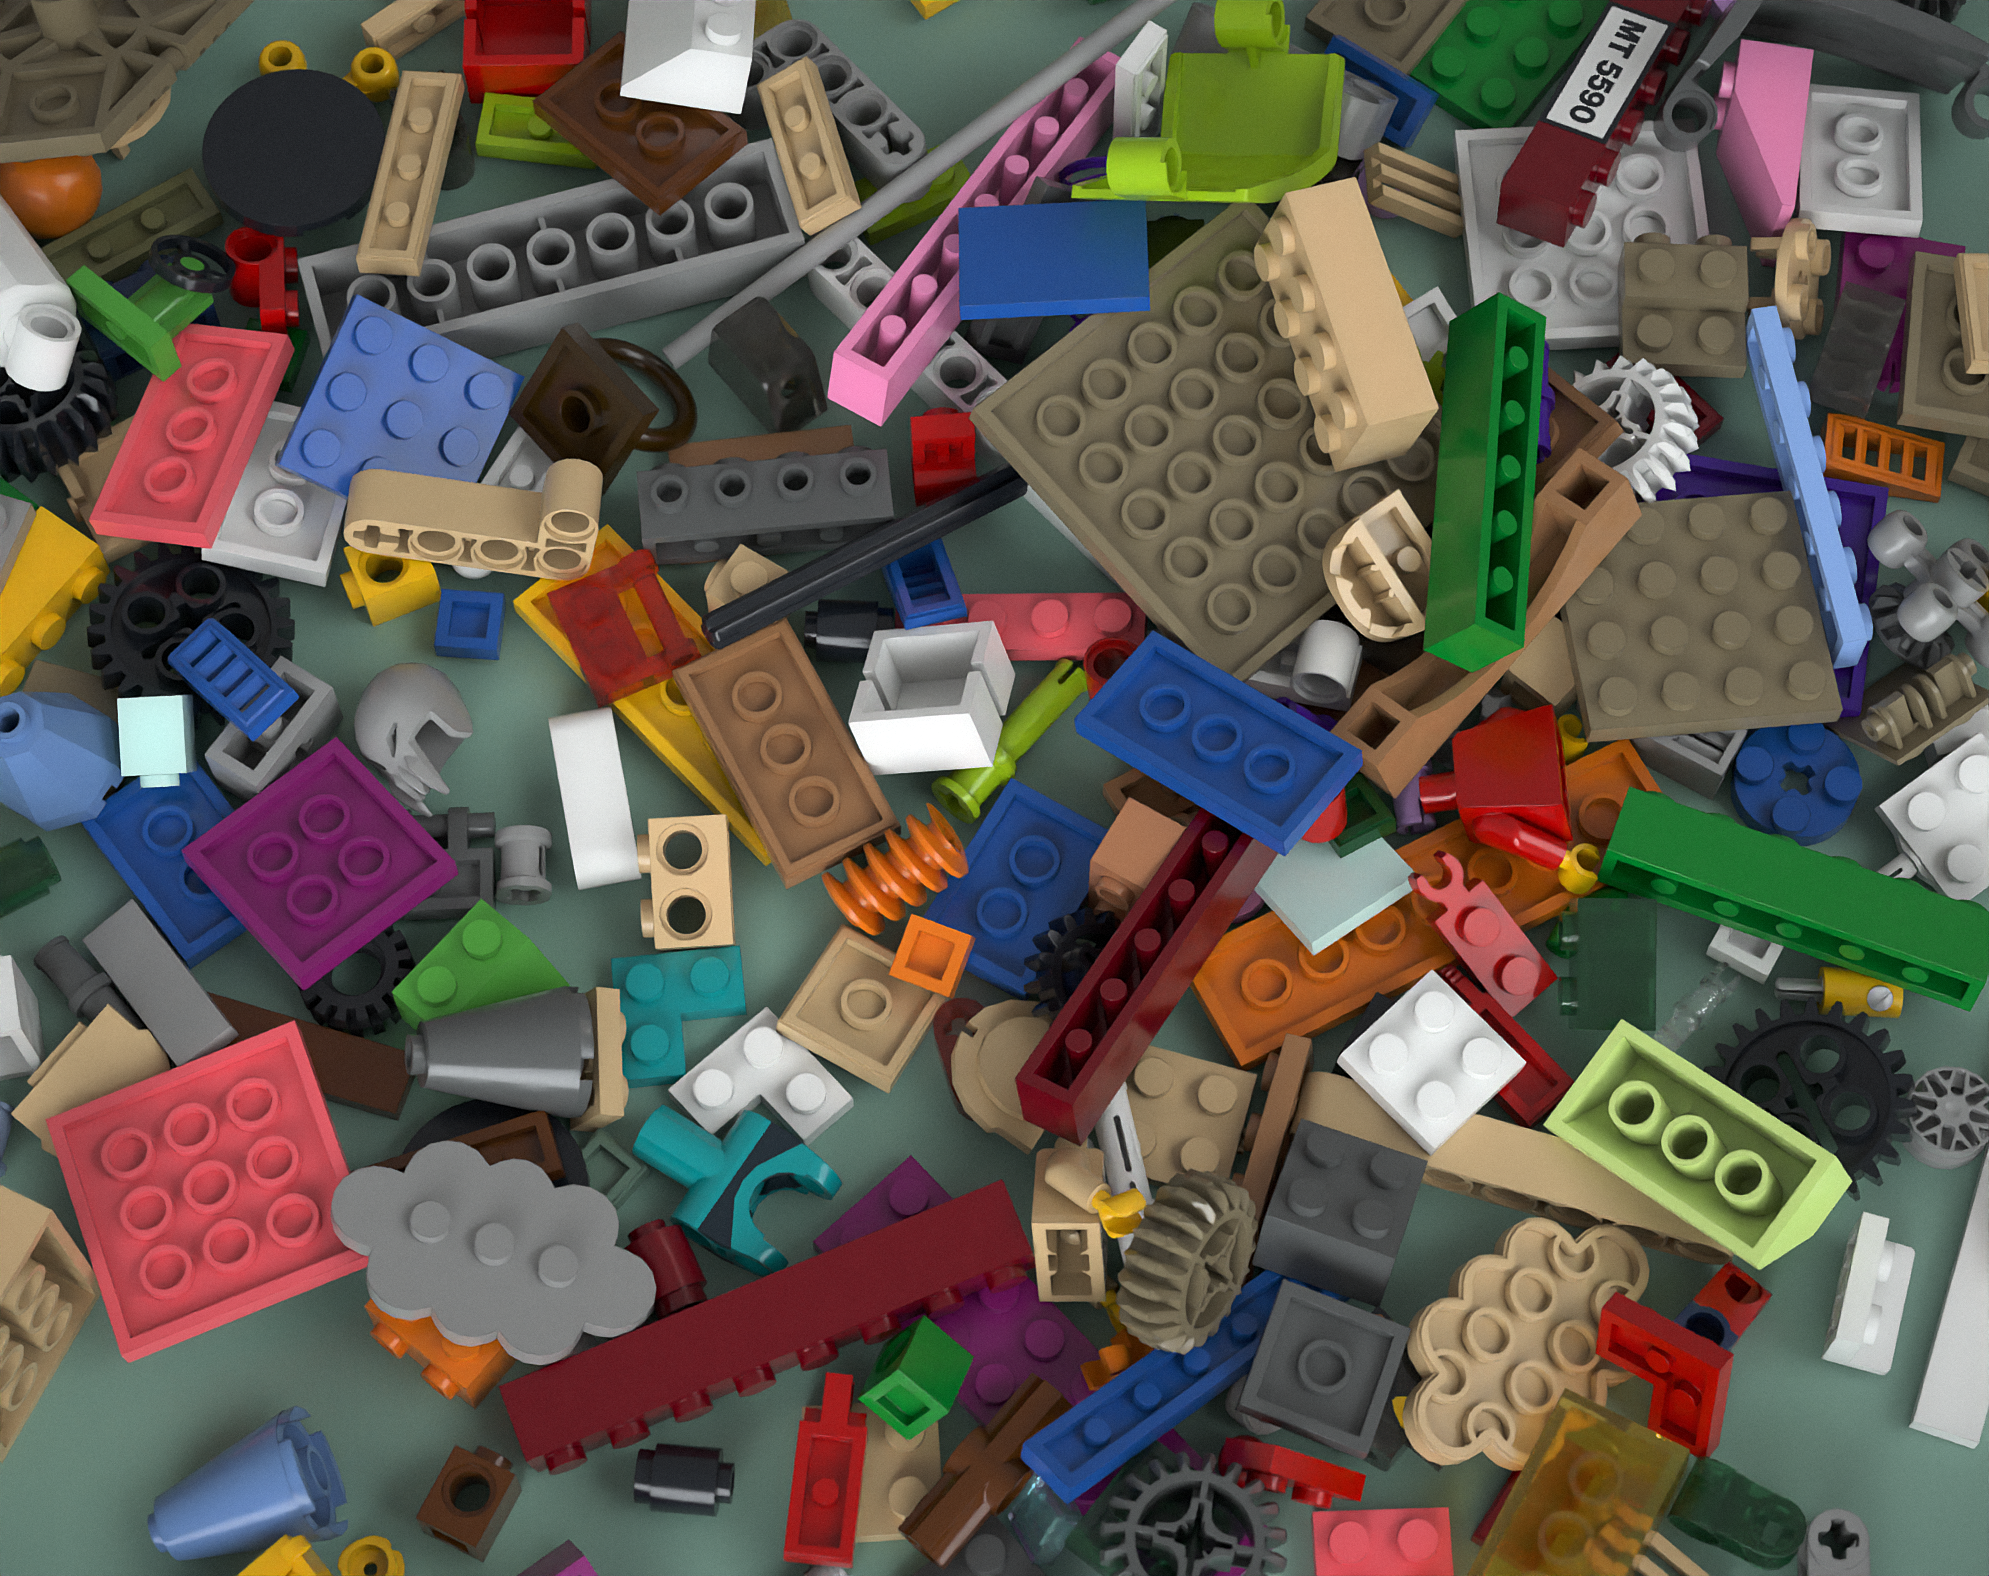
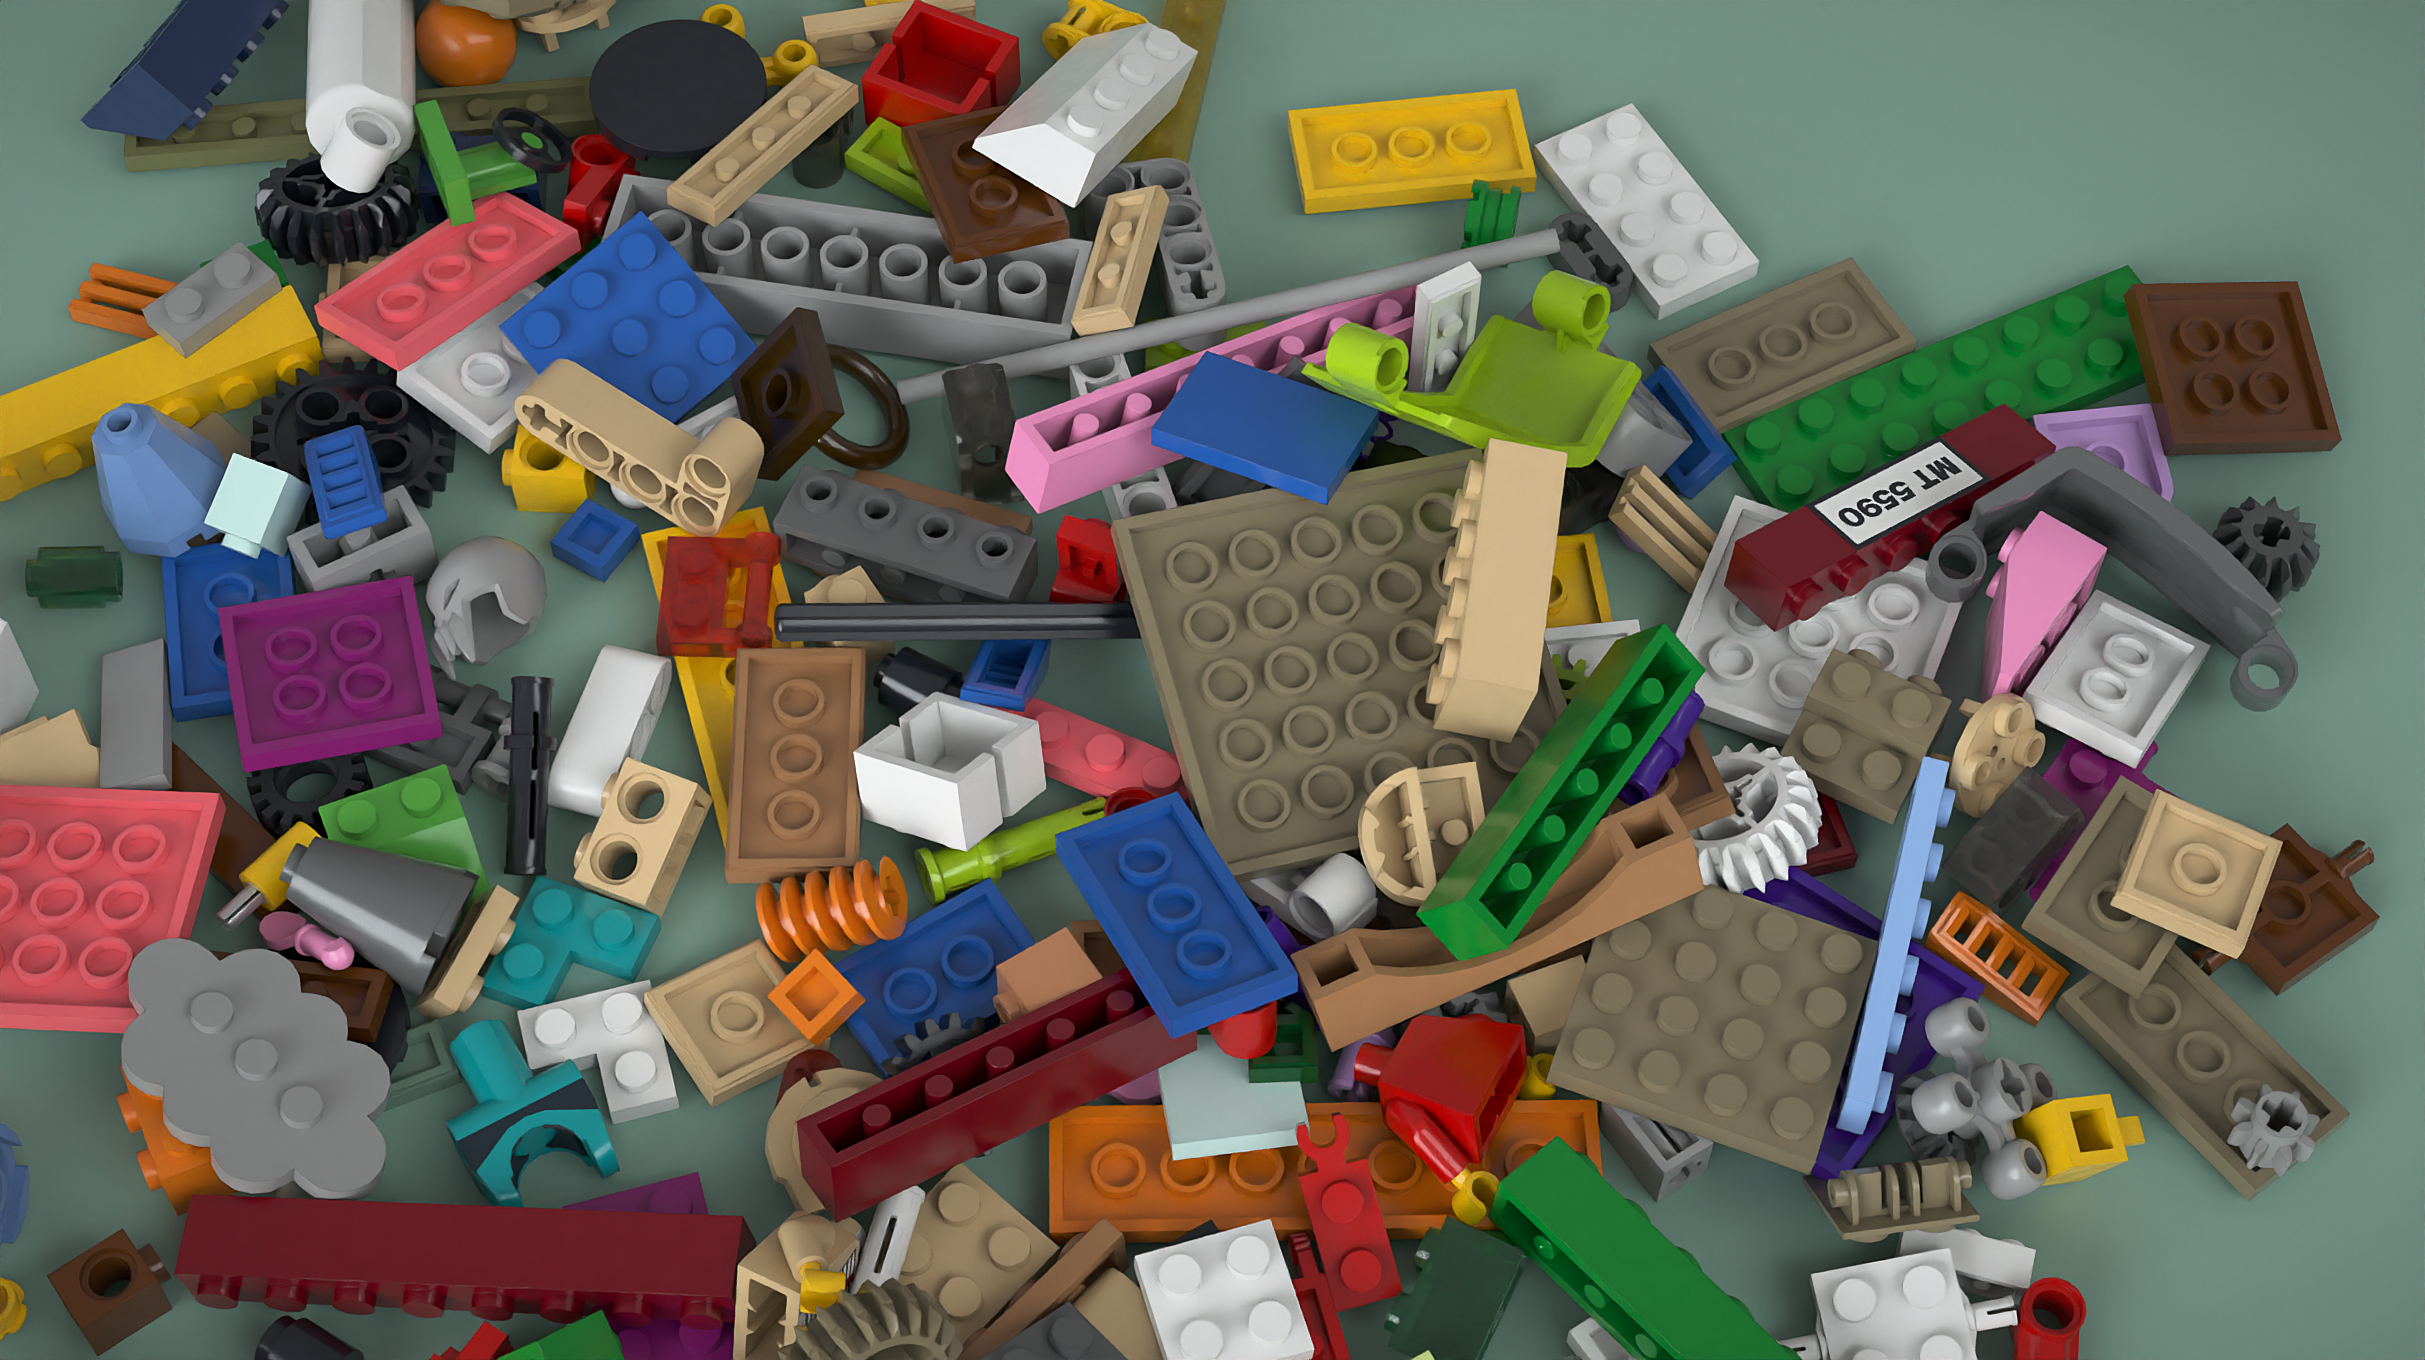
camera: 25 degrees right, 10 degrees down
(80, 982) = (76, 684): dark grey pin -> none
(382, 1069) = (263, 875): none -> yellow piece
(424, 1114) = (289, 930): none -> bright pink piece
(563, 886) = (528, 775): none -> black pin
(673, 1266) = (415, 1161): dark red brick -> none
(1805, 749) = (1721, 1248): blue plate -> none

